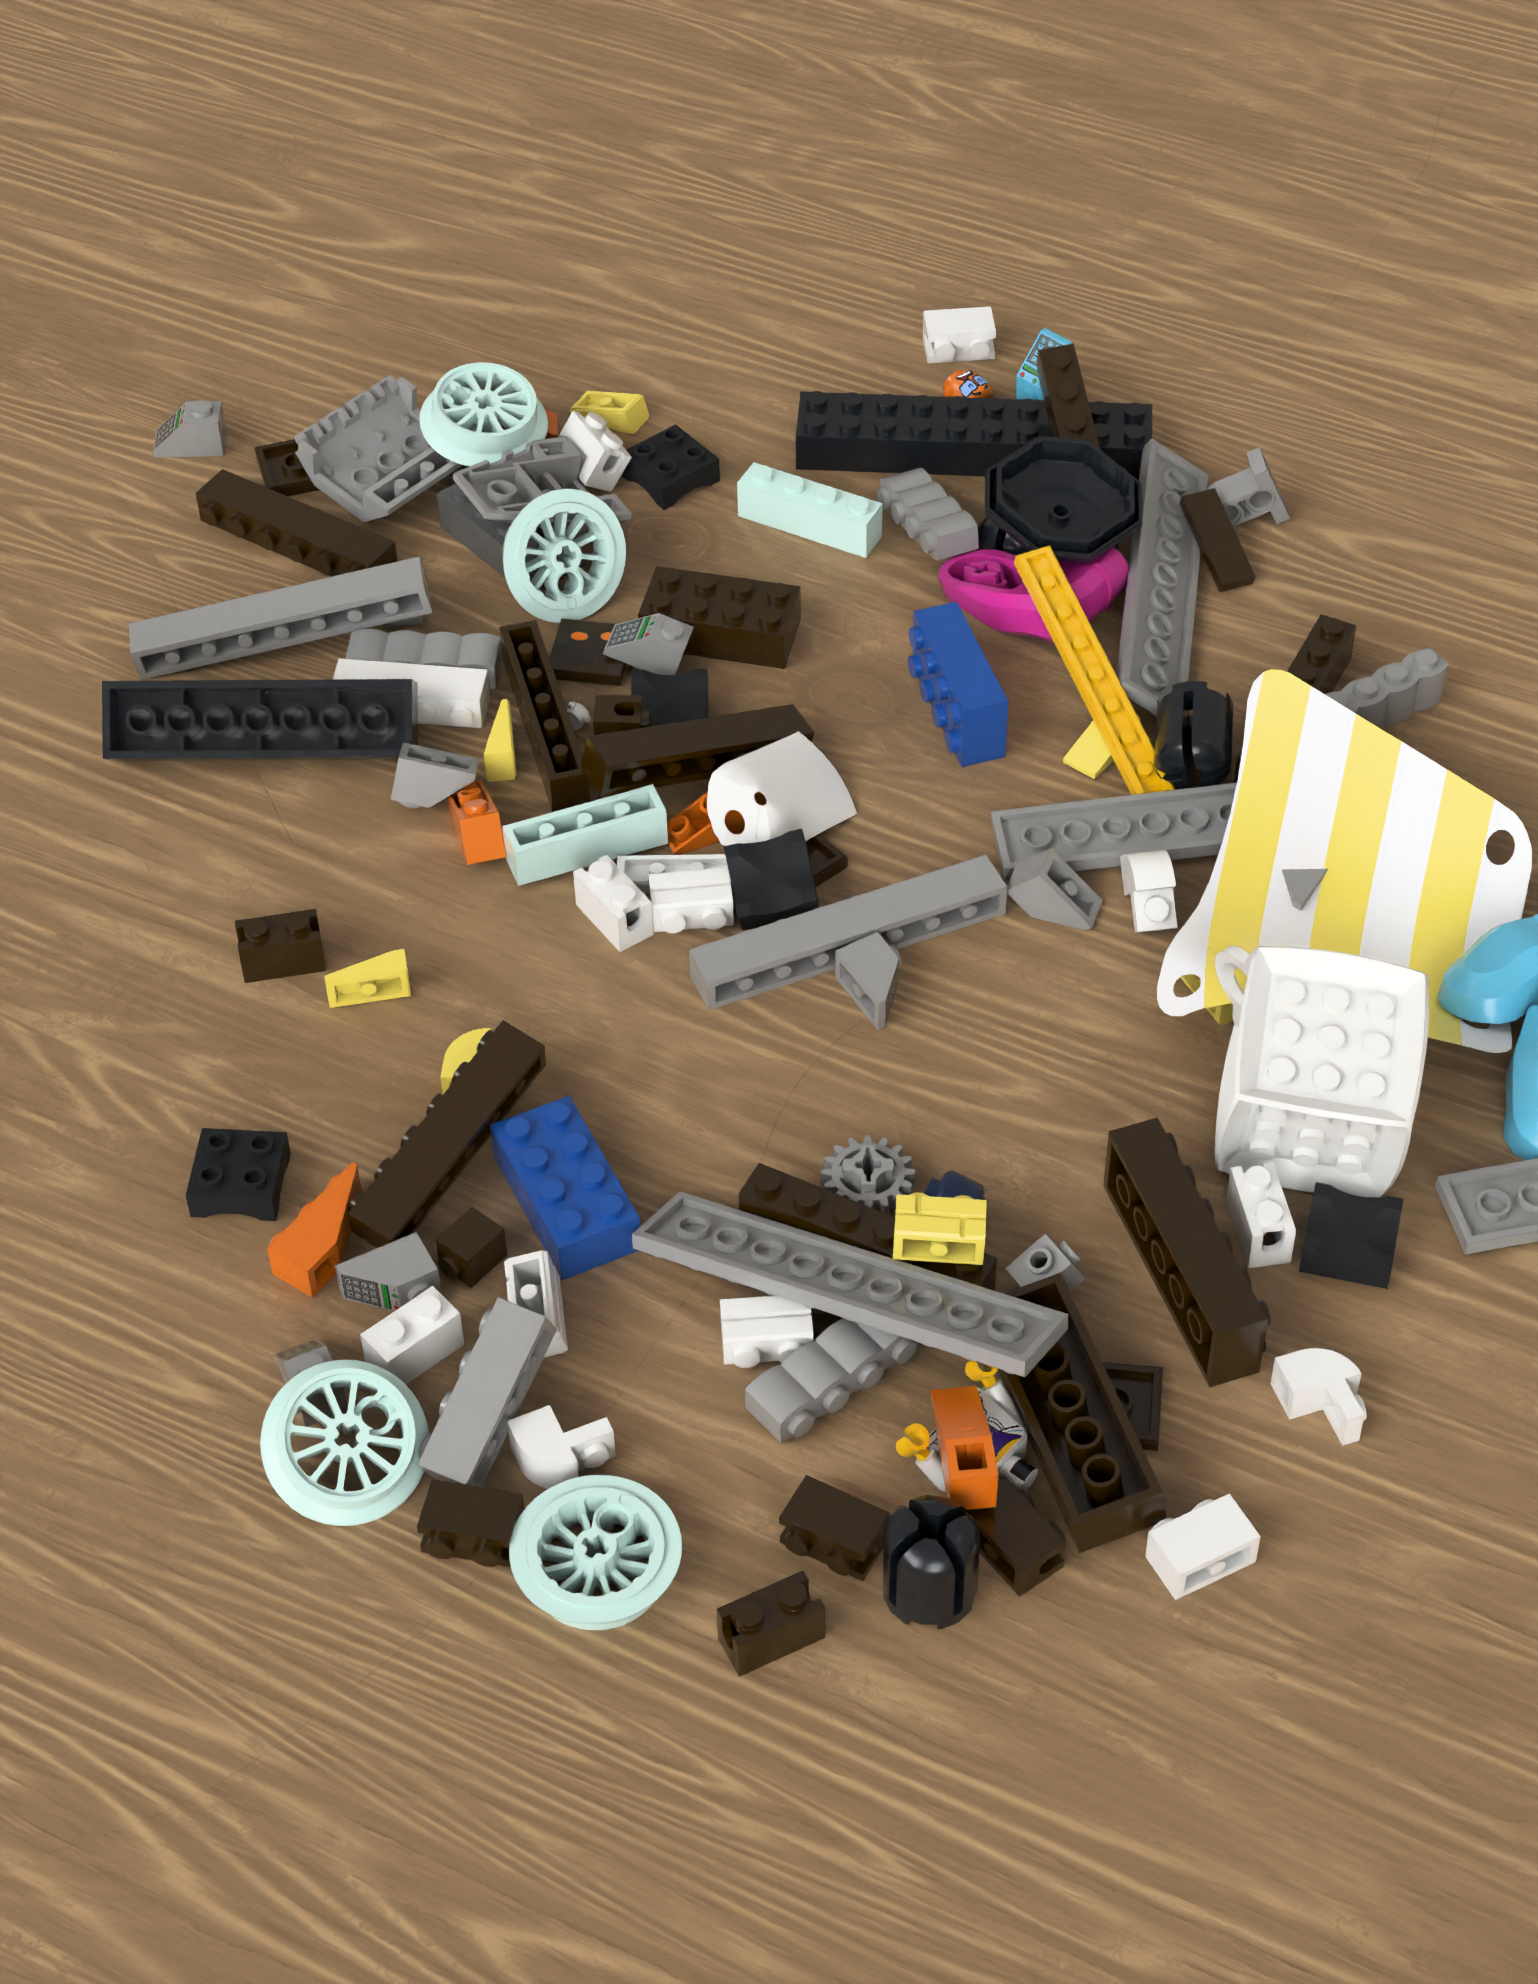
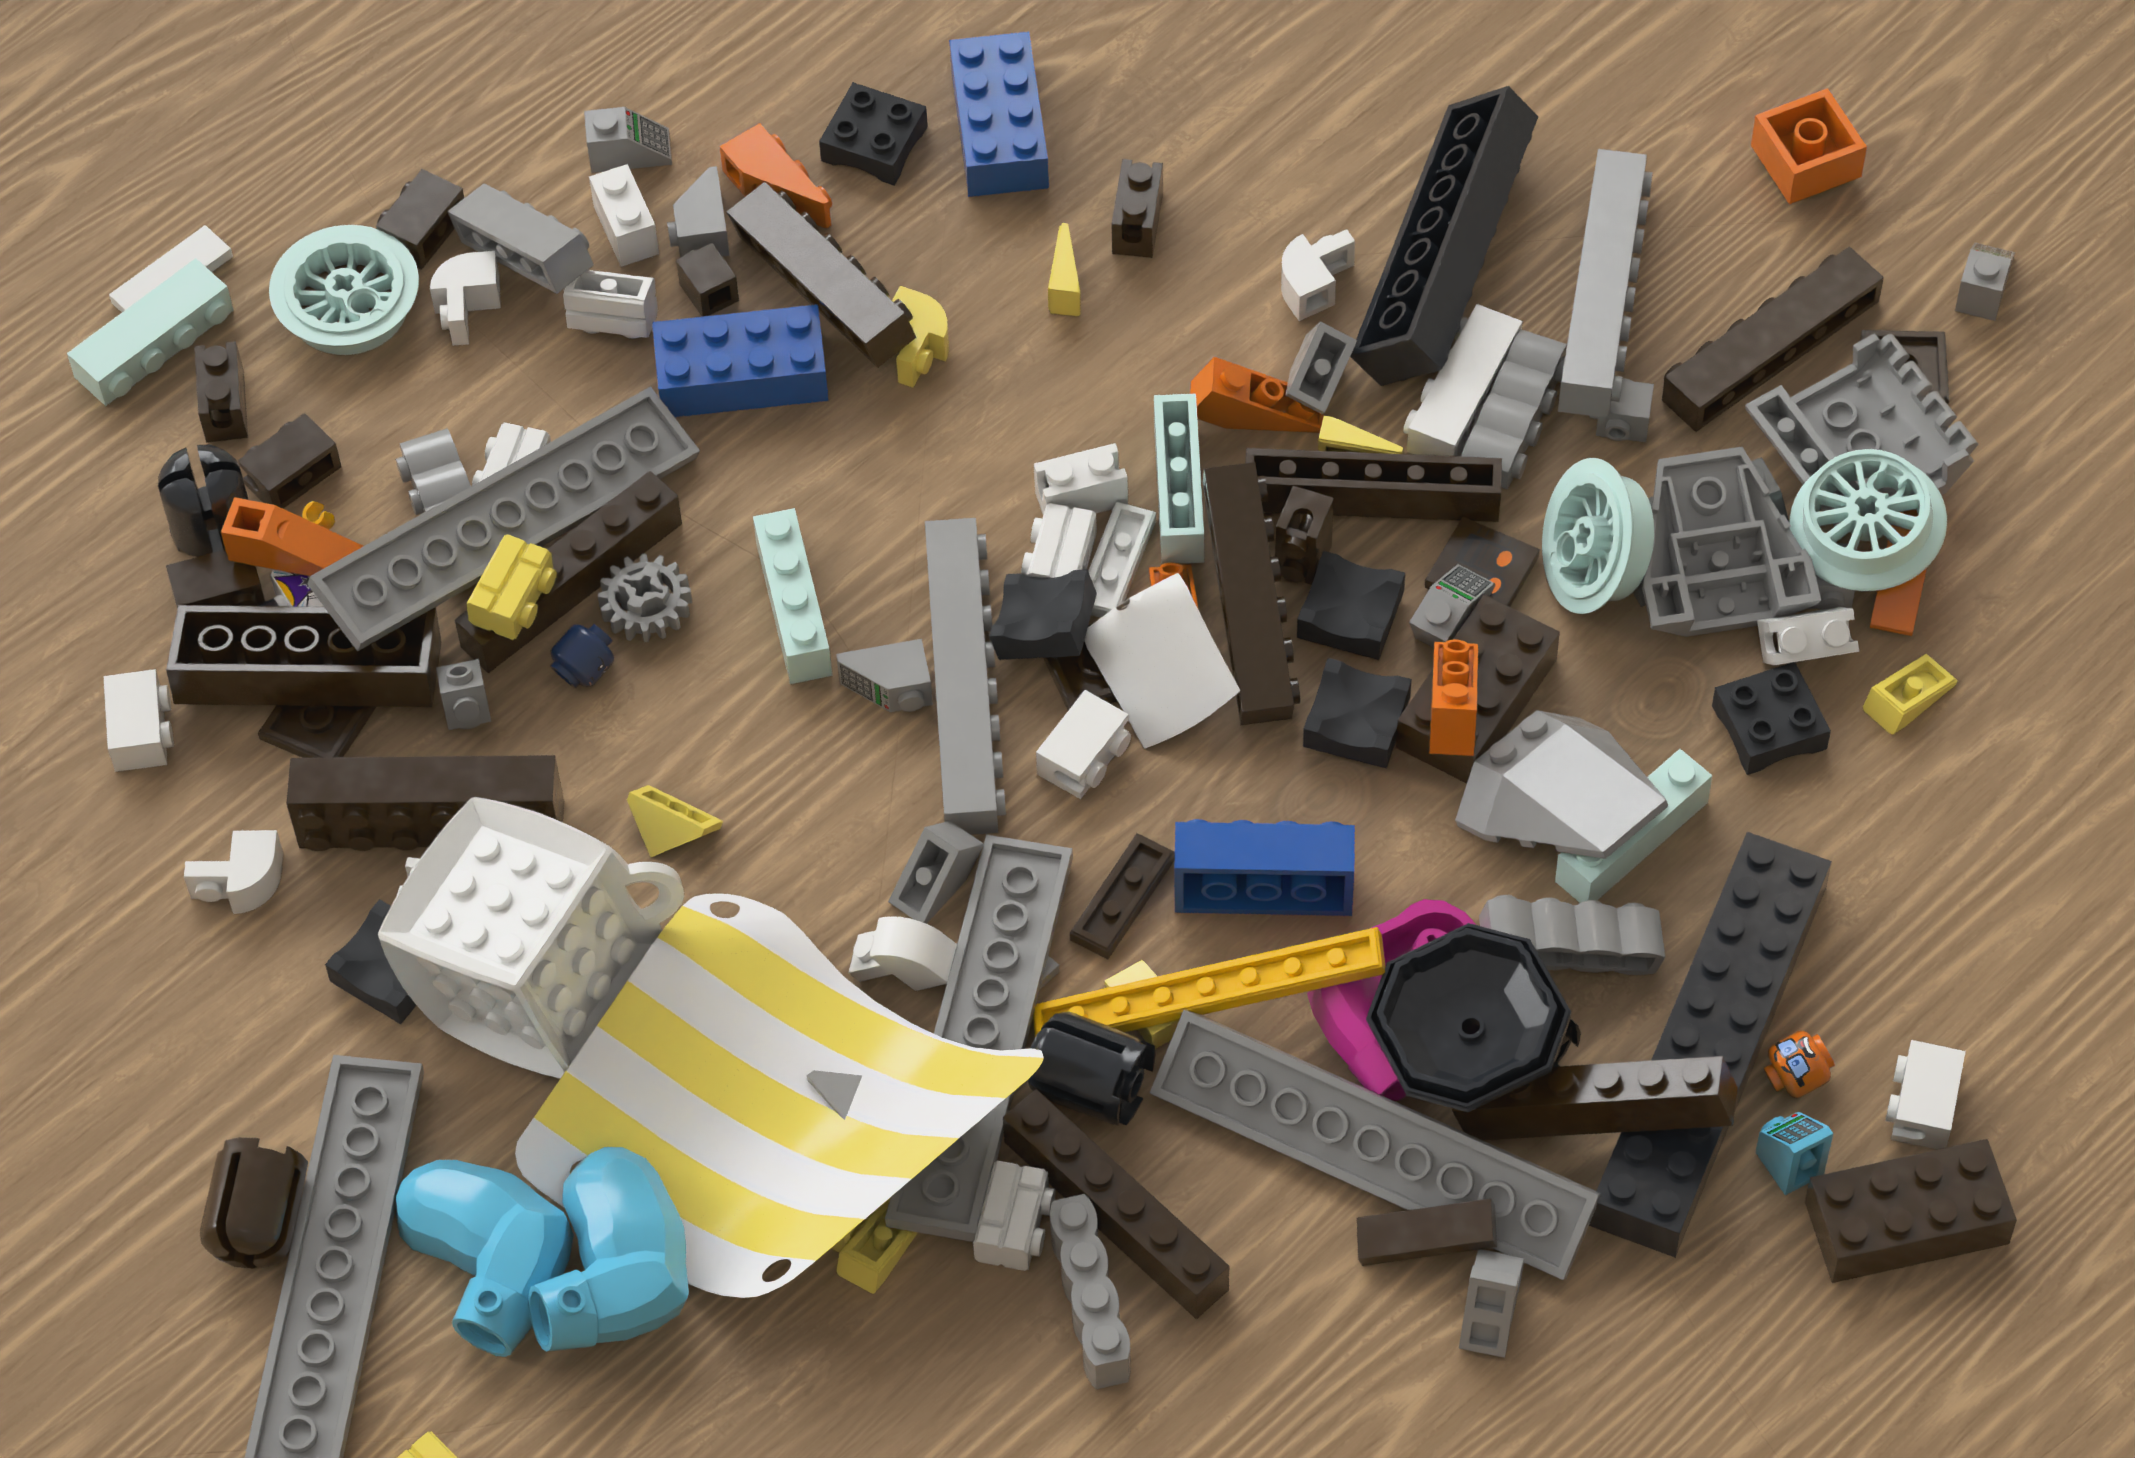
camera: 110 degrees right, 10 degrees up
(88, 540) = (1808, 146): none -> orange brick
(191, 1077) = (999, 114): none -> brick
(303, 1491) = (518, 130): light aqua piece -> none
(320, 819) = (1308, 272): none -> white brick
(578, 715) = (1381, 528): white piece -> none
(621, 1753) = (201, 245): none -> white tile
(714, 1729) = (150, 332): none -> light aqua brick
(765, 586) = (1454, 698): none -> orange slope
(775, 677) = (1356, 714): none -> black brick
(805, 536) = (1560, 787): none -> light grey wedge
(819, 1067) = (792, 596): none -> light aqua brick
(882, 835) = (1083, 745): none -> white brick
(1008, 784) = (1122, 896): none -> dark brown tile
(1048, 300) = (1910, 1210): none -> dark brown brick
(1091, 1088) = (667, 820): none -> light yellow slope

